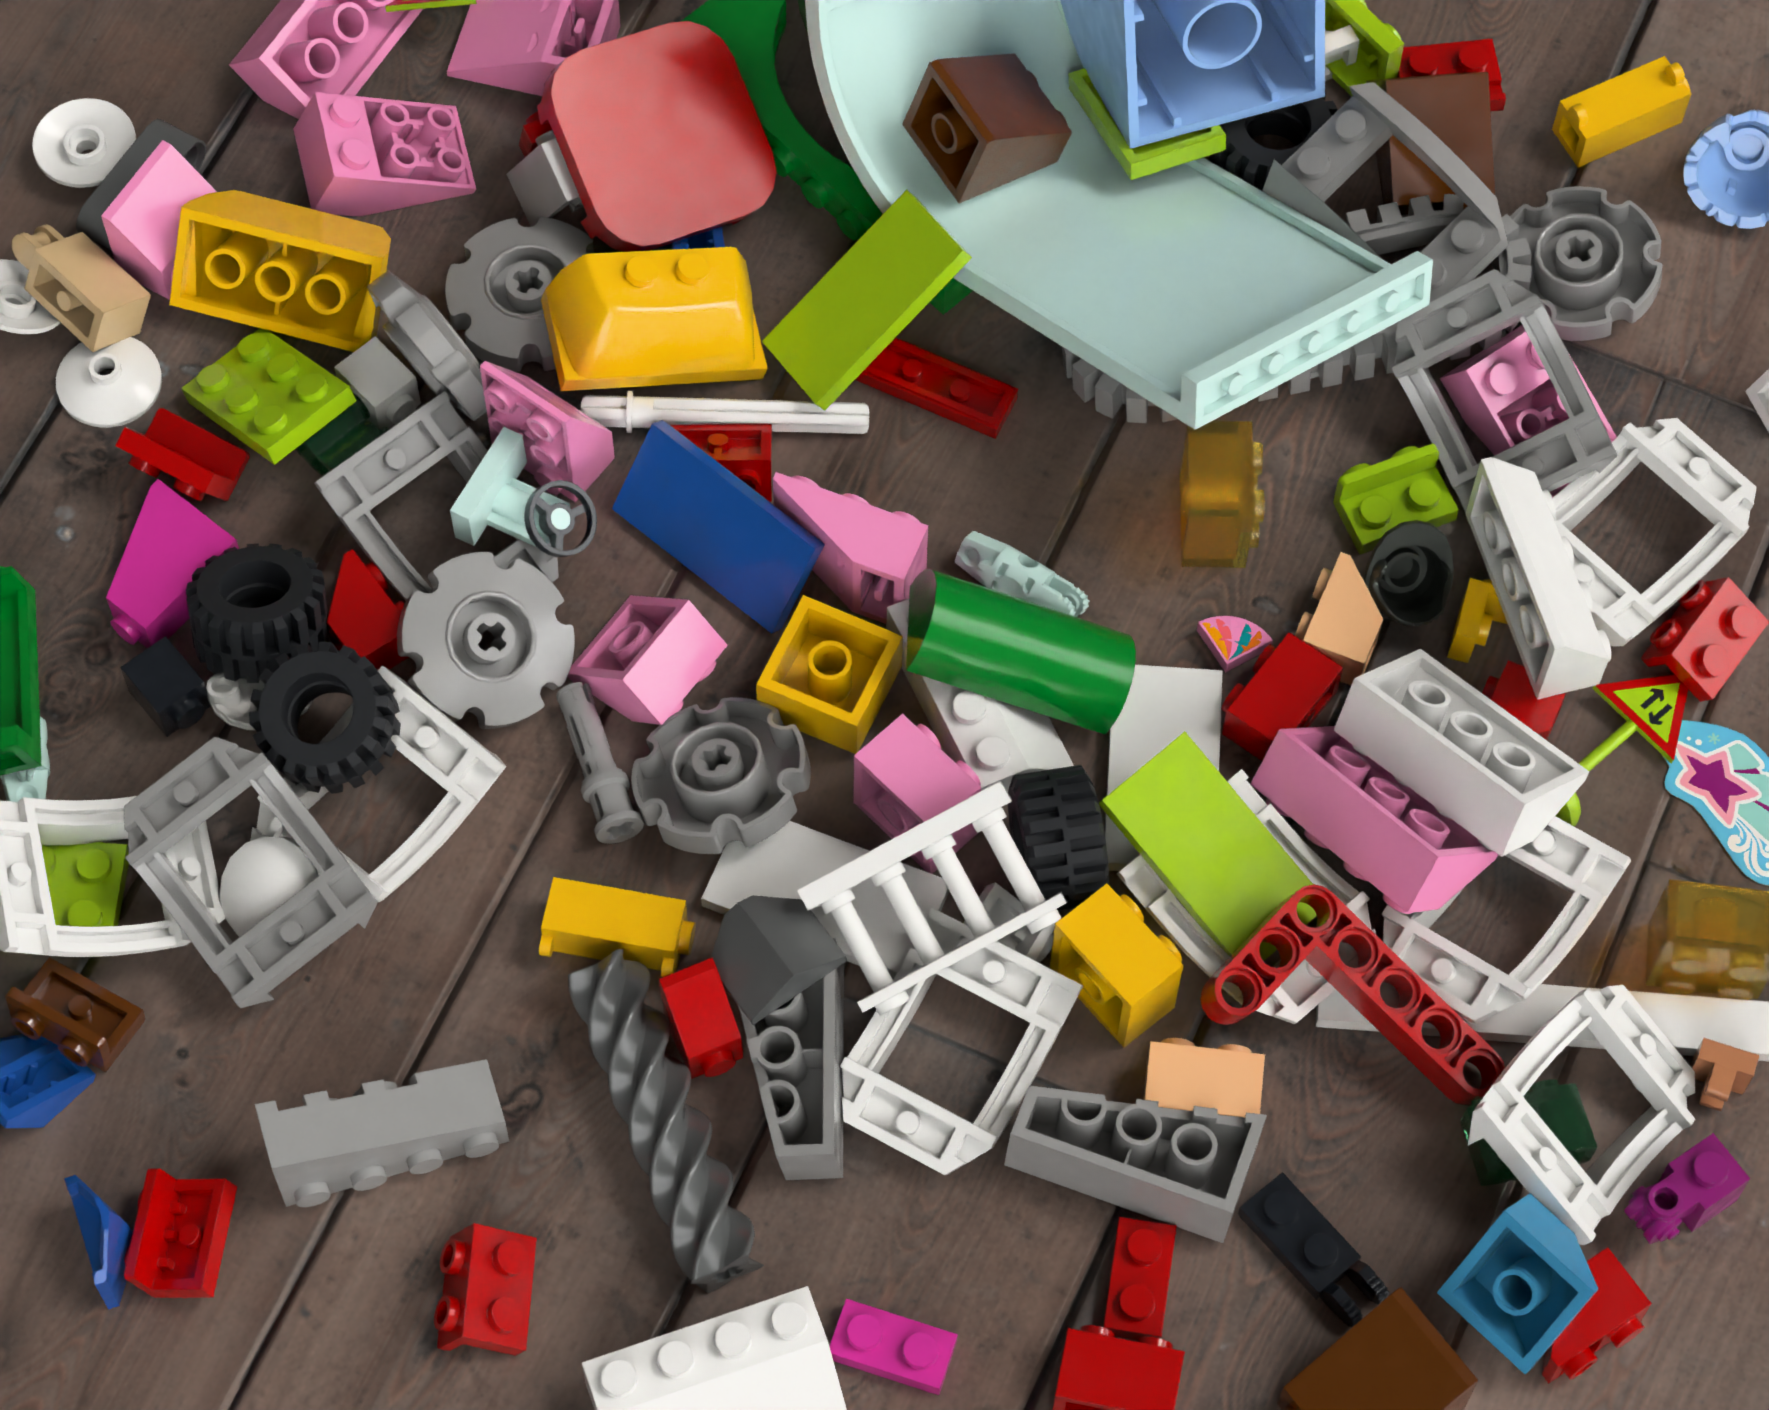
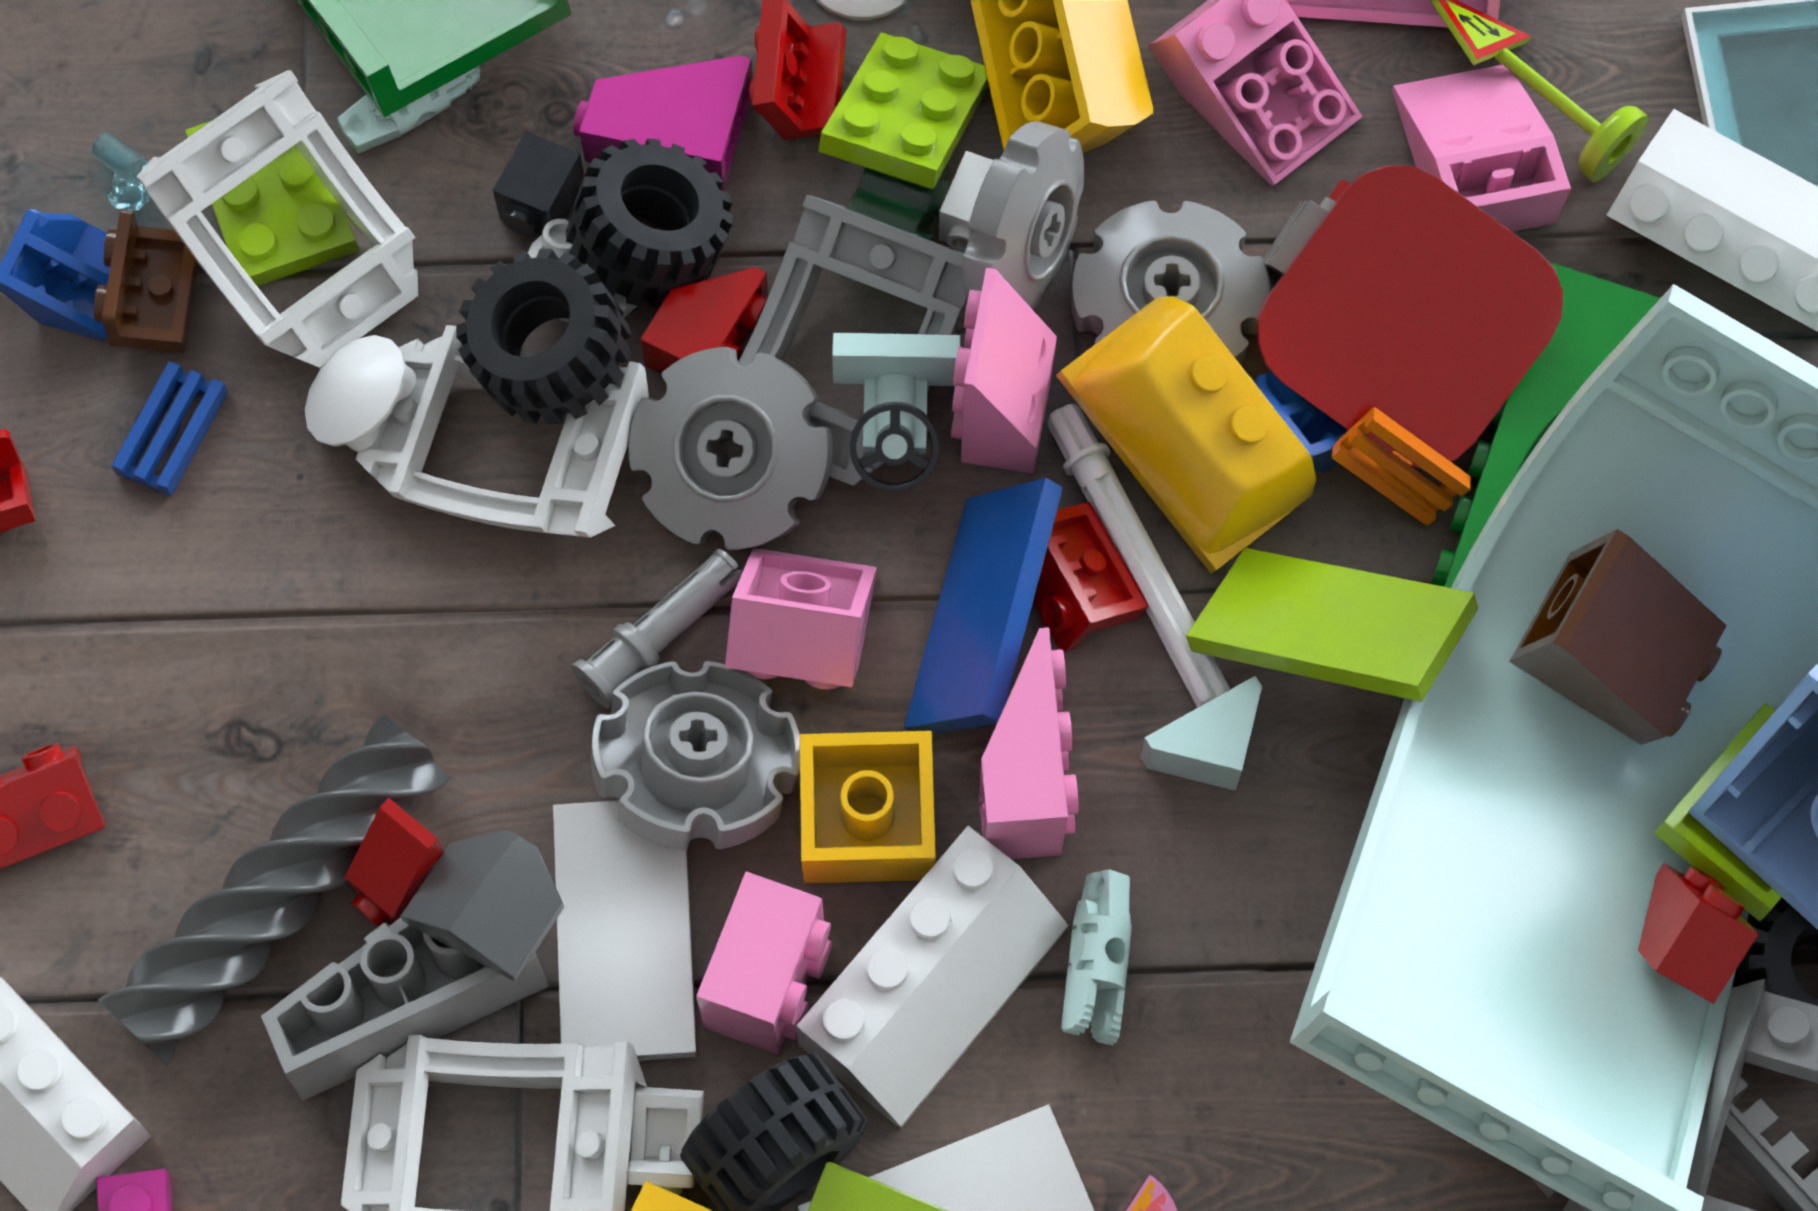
camera: 65 degrees right, 5 degrees up
(182, 1022) = (149, 418): none -> blue tile
(292, 931) = (307, 431): light grey wedge -> none
(381, 1131) = (141, 619): light grey wedge -> none
(601, 919) = (477, 736): yellow brick -> none
(791, 201) = (1393, 473): none -> orange tile
(903, 430) = (1208, 741): none -> light aqua slope
(935, 842) = (672, 1002): white fence -> none
(941, 387) = (1301, 762): red tile -> none
(1018, 651) = (981, 989): green brick -> none
(1220, 494) = (1302, 1123): clear yellow brick -> none
(1222, 182) = (1694, 931): none -> red slope

